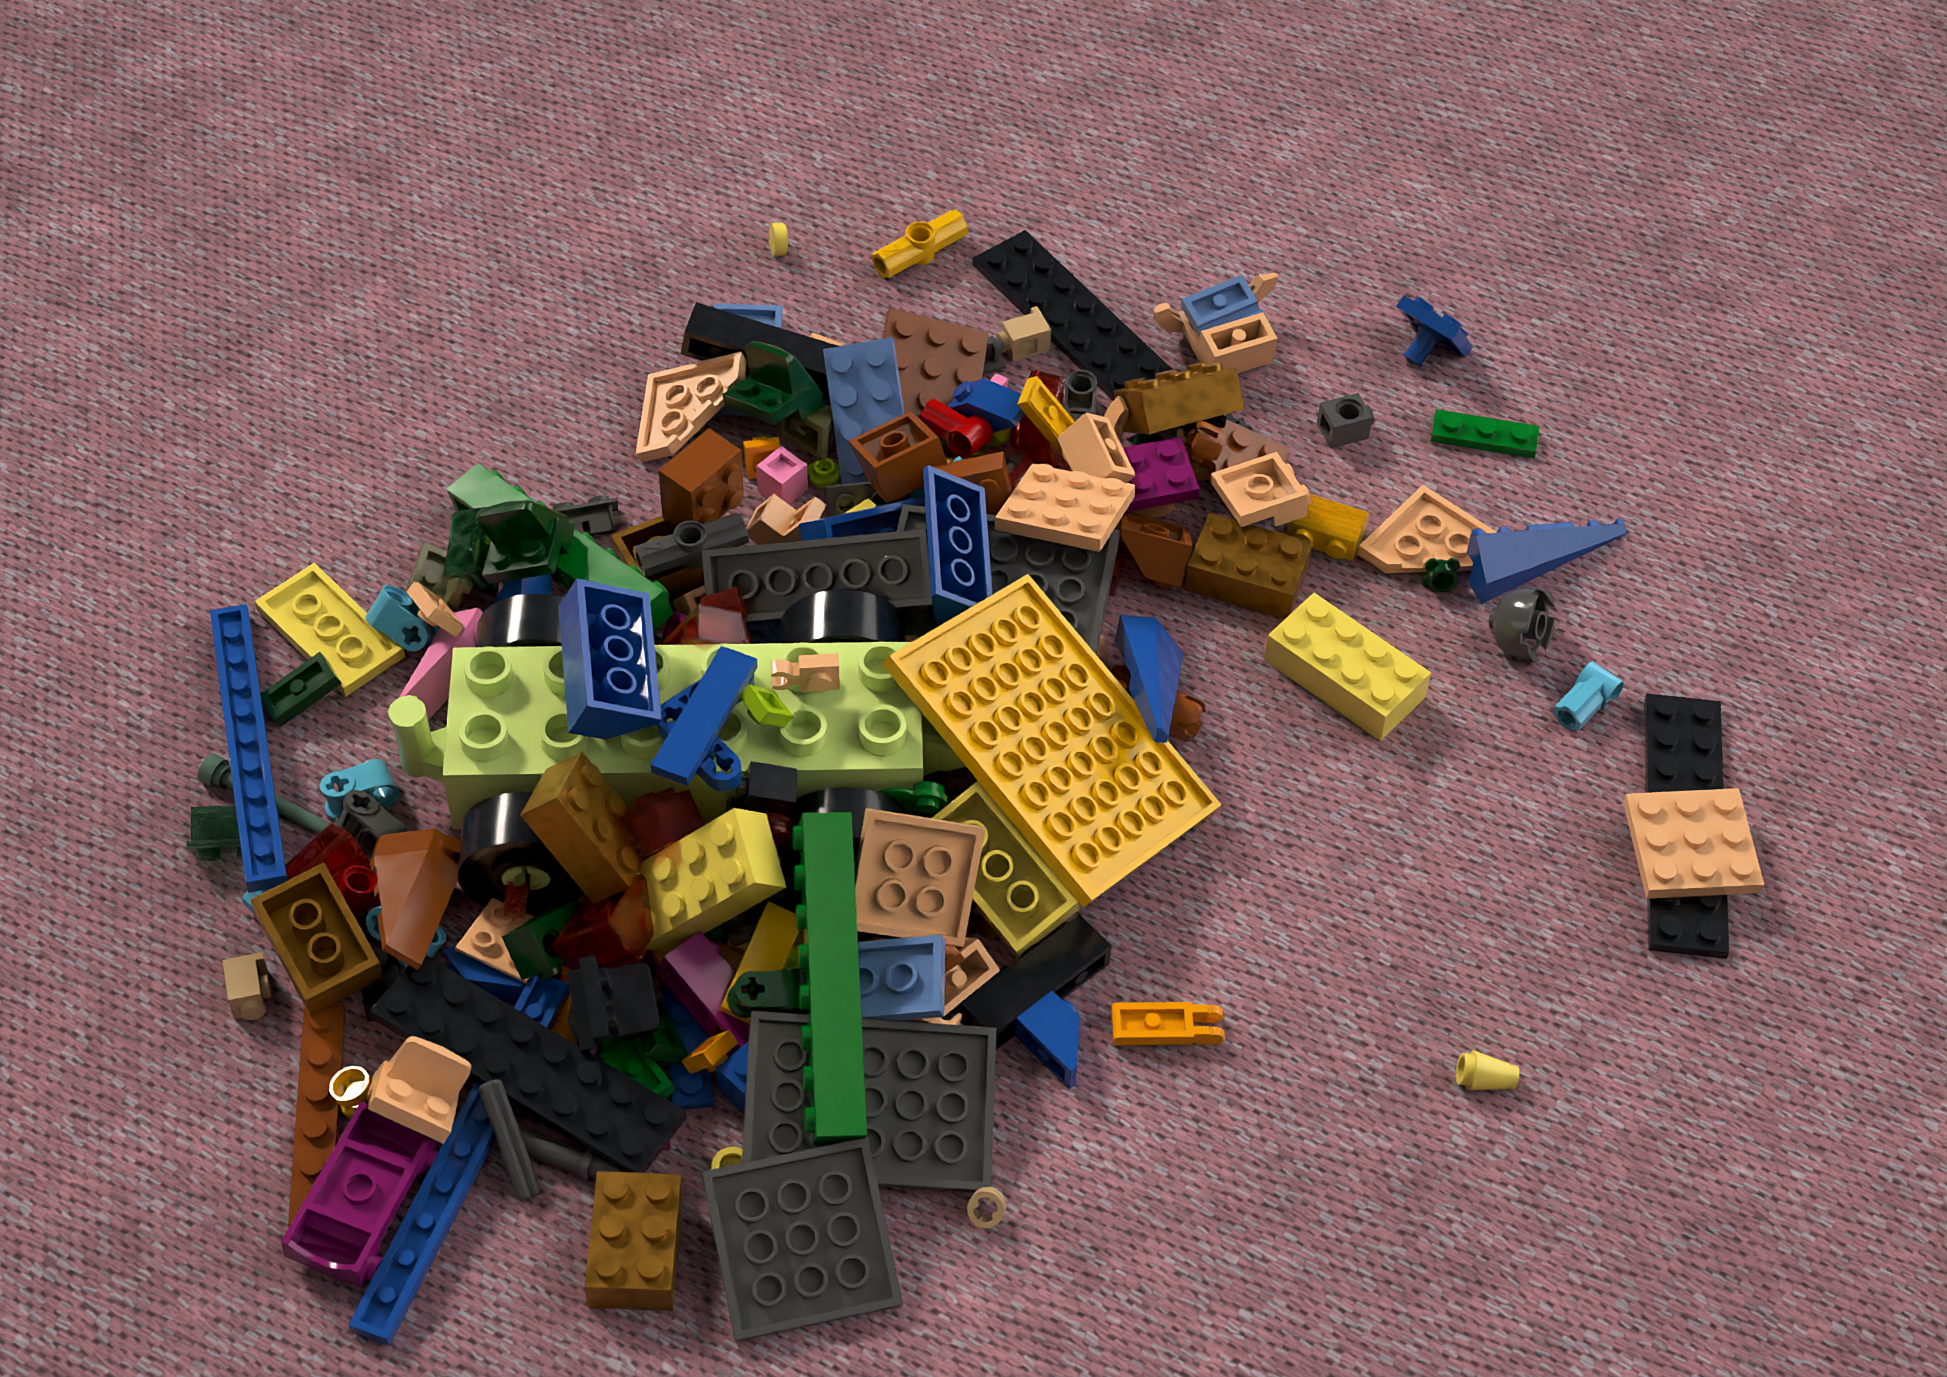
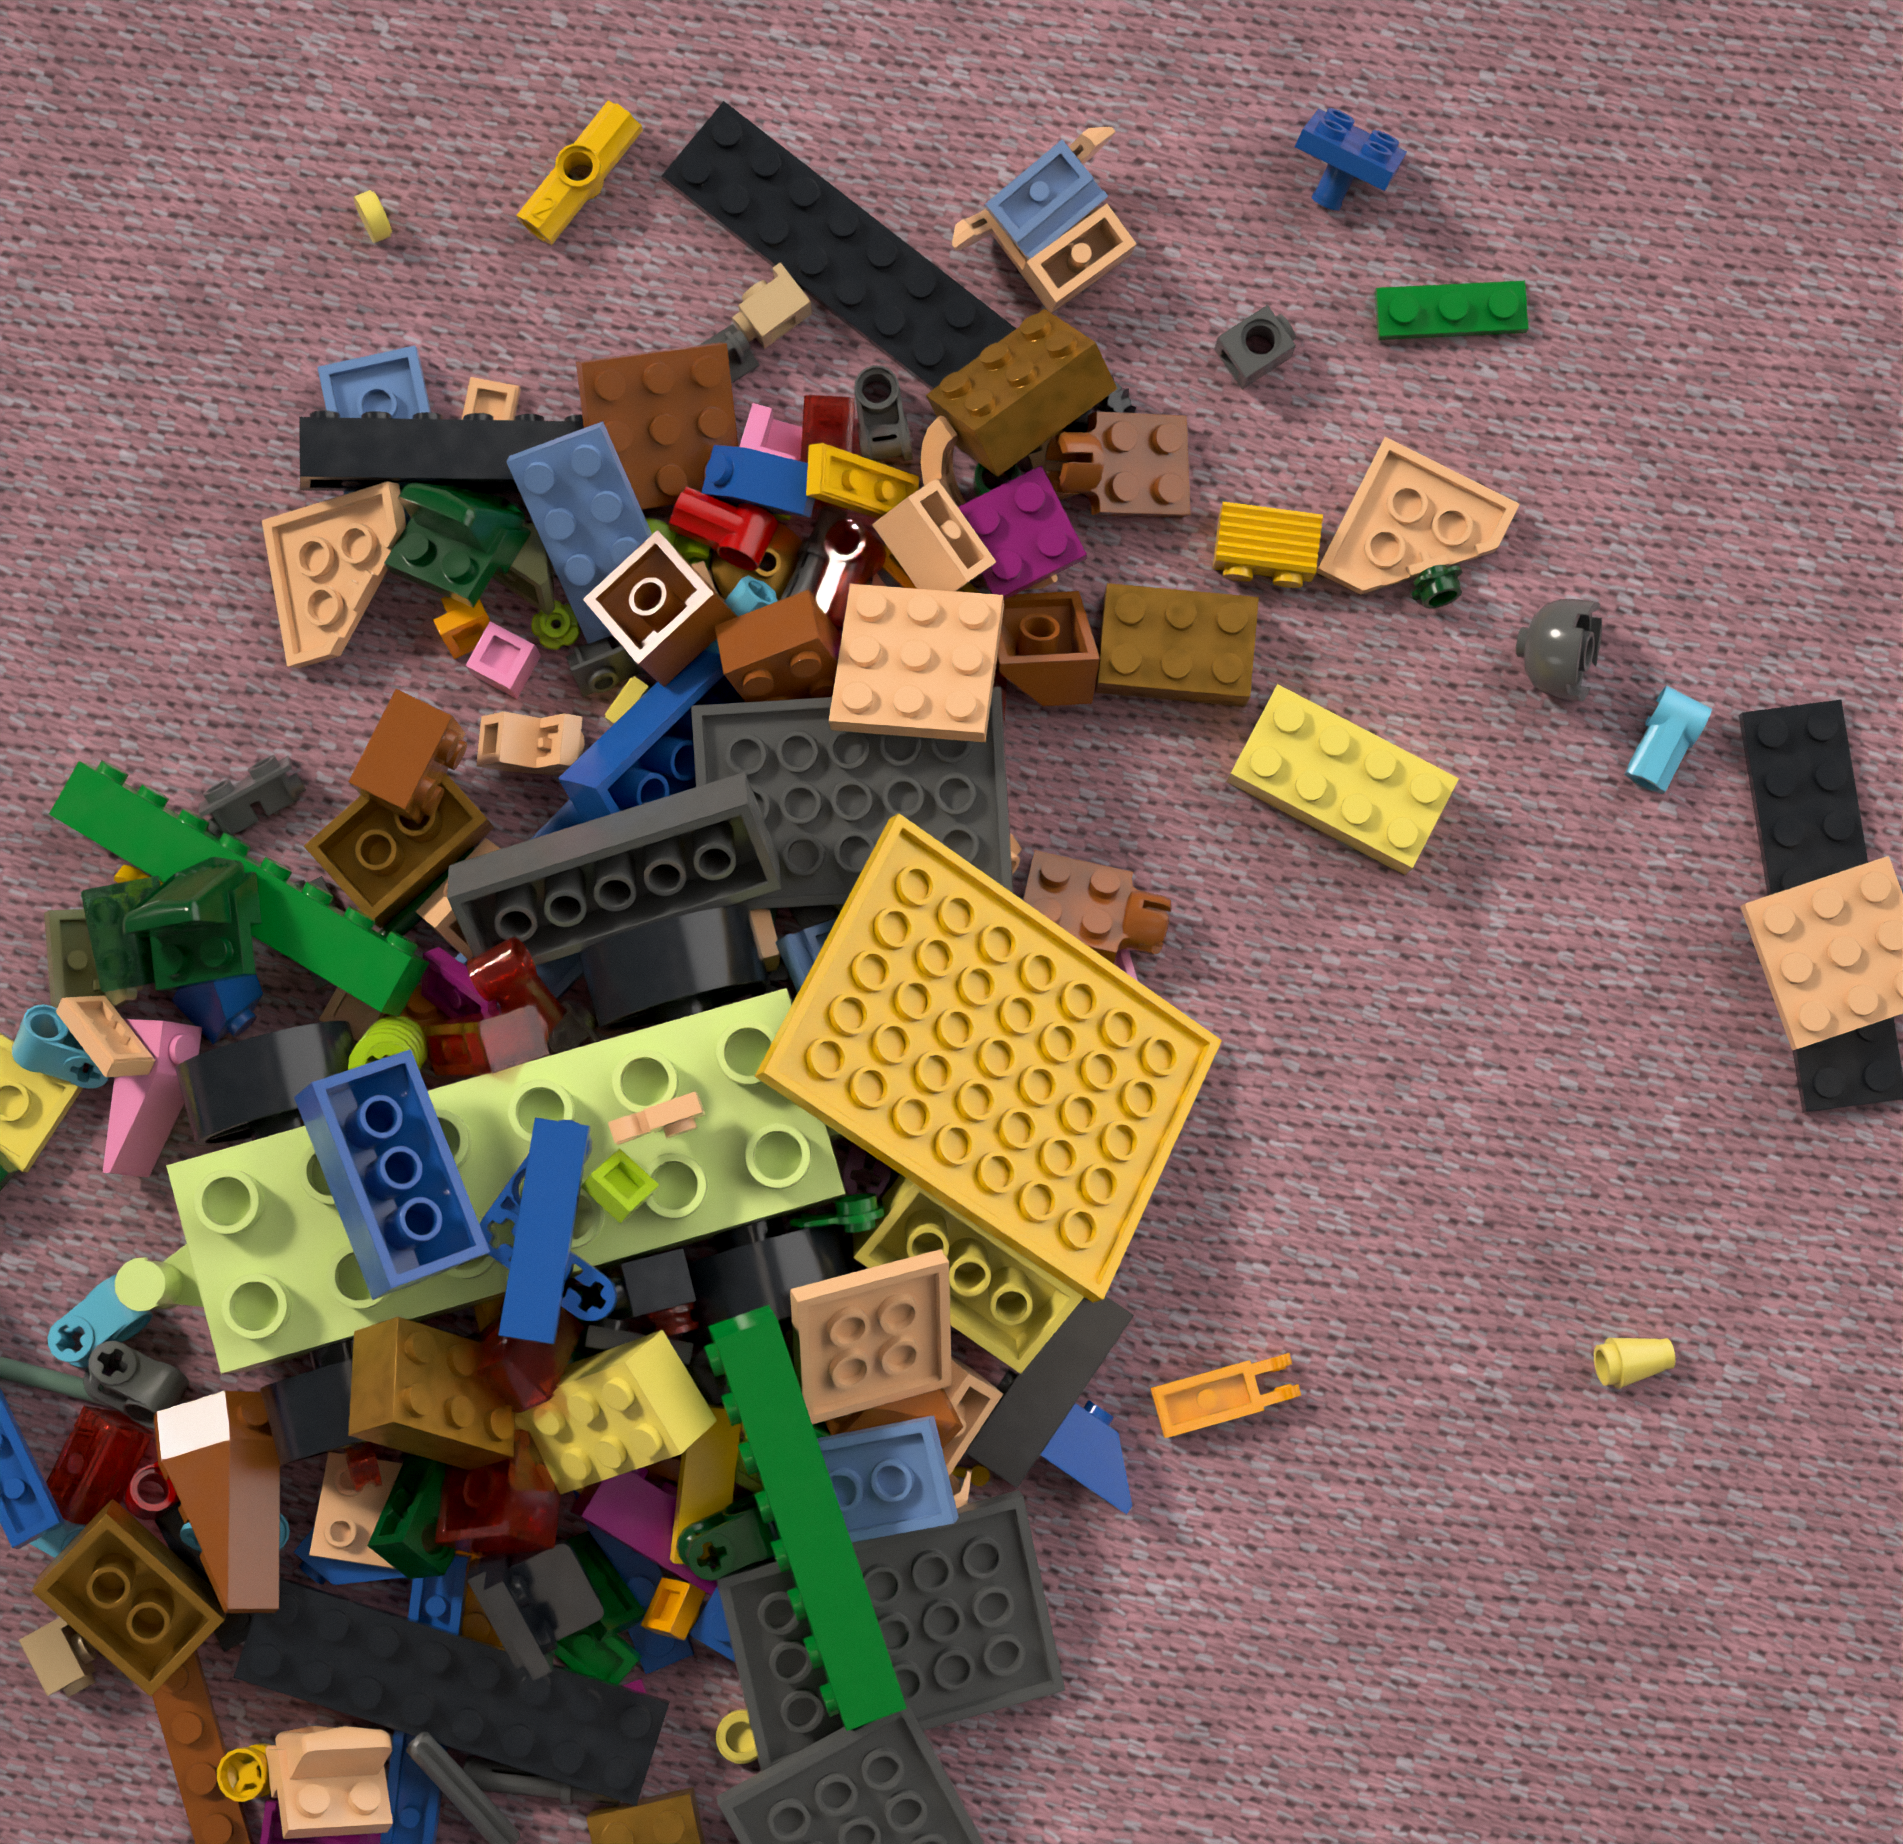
camera: 15 degrees left, 30 degrees up
(687, 542) = (393, 874): dark grey piece -> none
(956, 543) = (792, 794): blue slope -> none
(976, 1199) = (1066, 1728): tan bush -> none
(1154, 670) = (1085, 853): blue wedge -> none
(1262, 491) = (1173, 537): light nougat plate -> none
(1515, 557) = (1537, 533): blue wedge -> none

